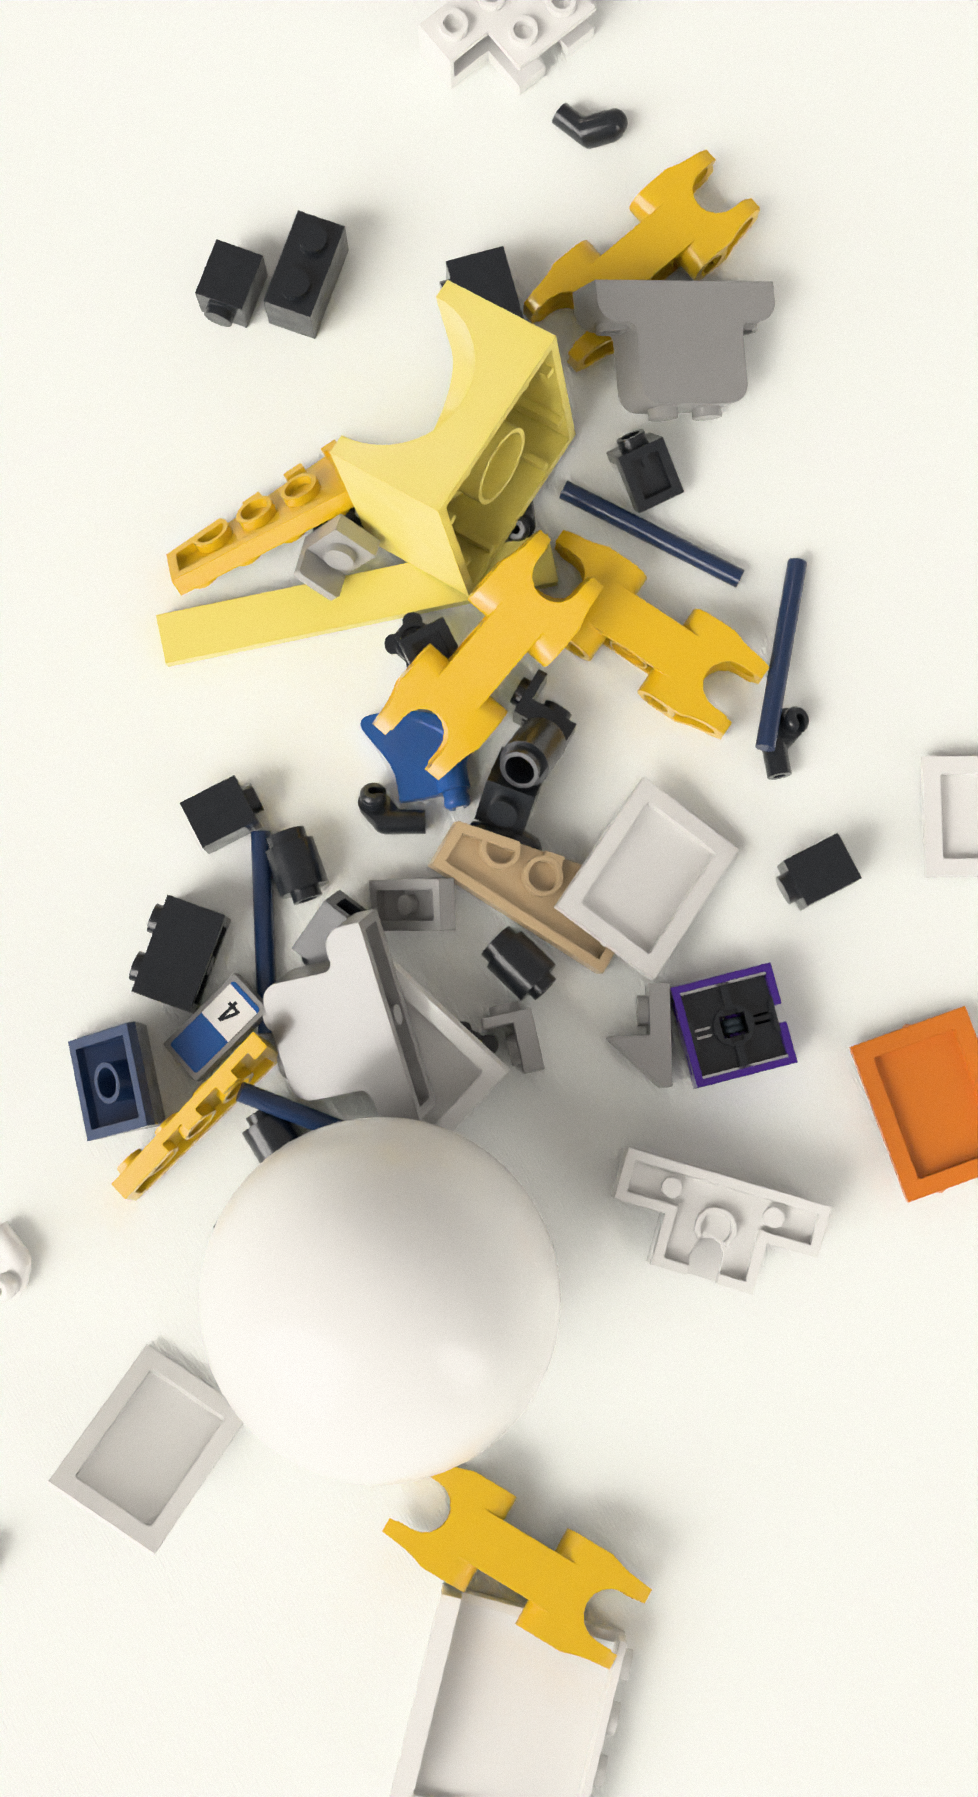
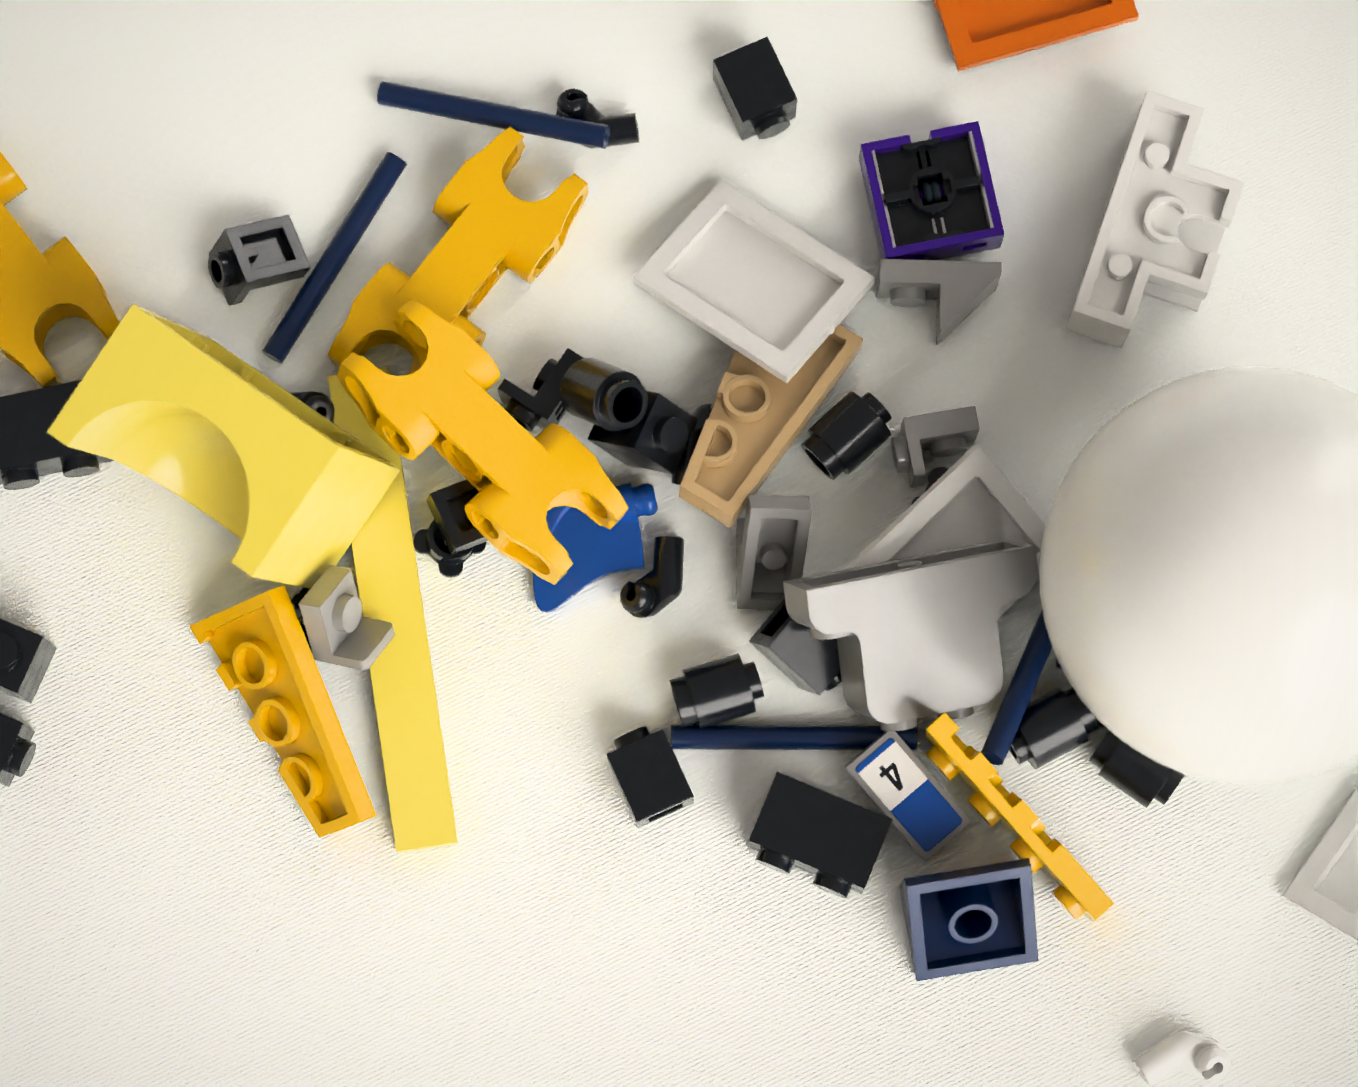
camera: 85 degrees left, 5 degrees down
(676, 340) = (111, 204): light grey brick -> none

